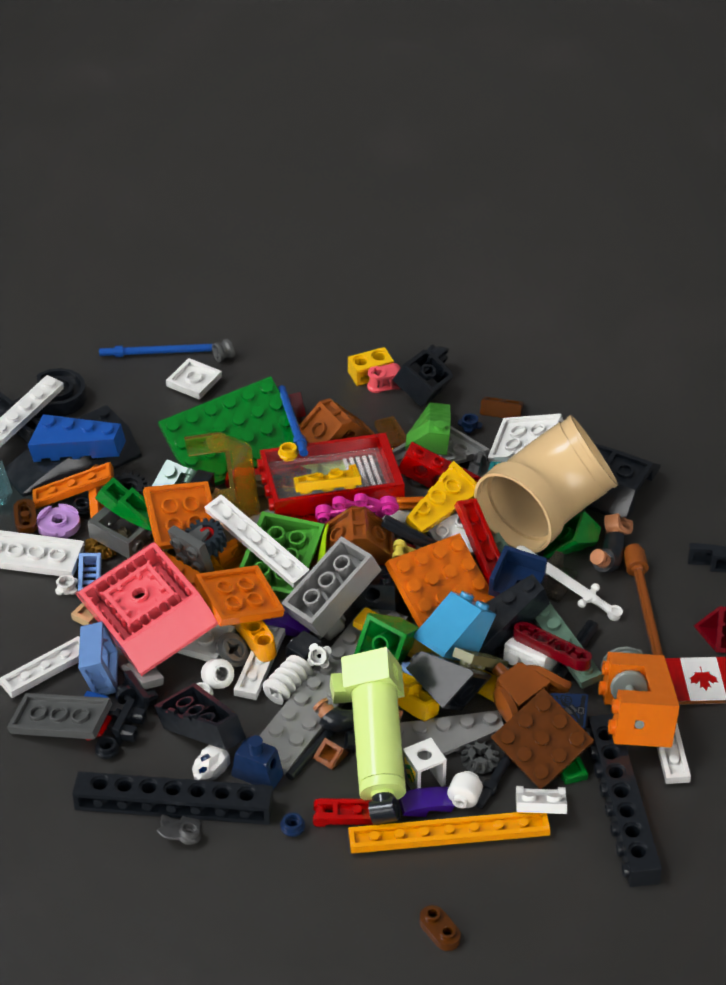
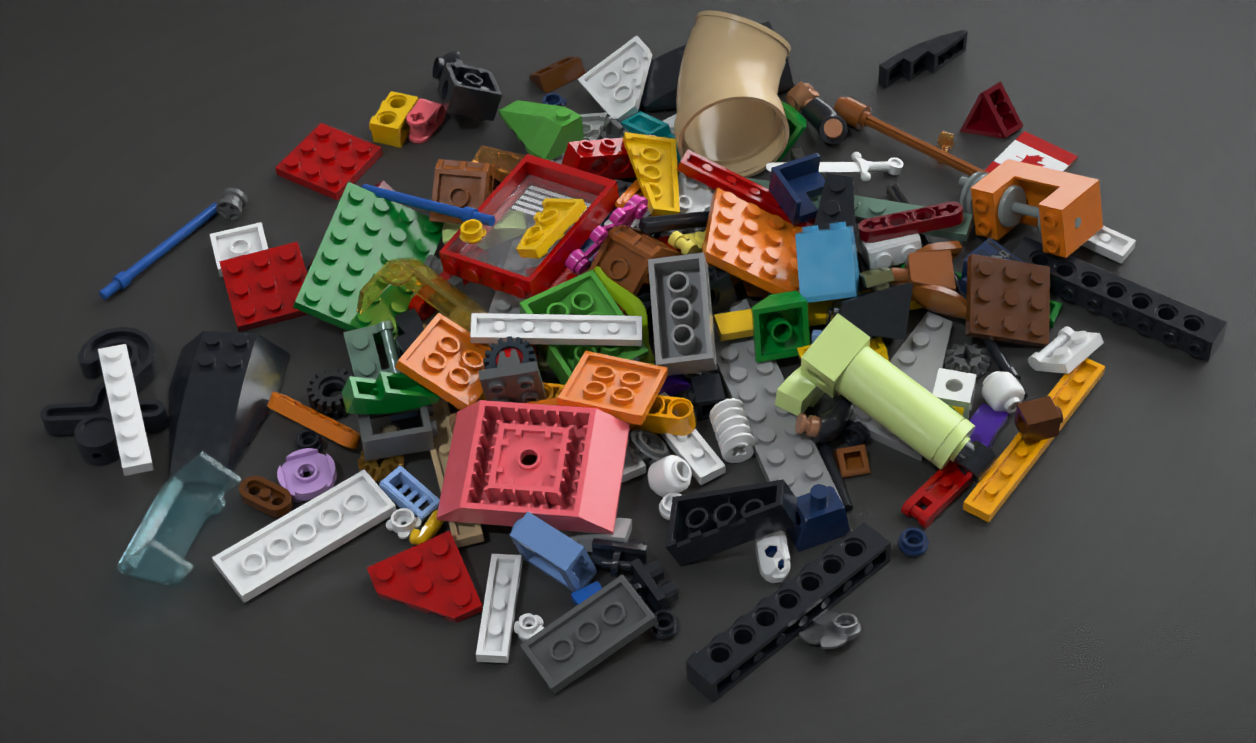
camera: 45 degrees left, 5 degrees up
(35, 623) = (429, 579): none -> red plate
(45, 687) = (524, 632): none -> white plate
(67, 599) = (428, 531): none -> yellow arm
(73, 485) = (278, 428): orange tile -> none
(75, 438) = (231, 379): blue wedge -> none
(170, 399) = (264, 285): none -> red plate
(307, 364) = (329, 161): none -> red plate
(313, 658) = (743, 382): white plate -> none
(437, 926) = (1139, 515): reddish brown plate -> none
(452, 819) = (1038, 419): none -> reddish brown brick
(671, 624) = (946, 140): none -> clear orange hand

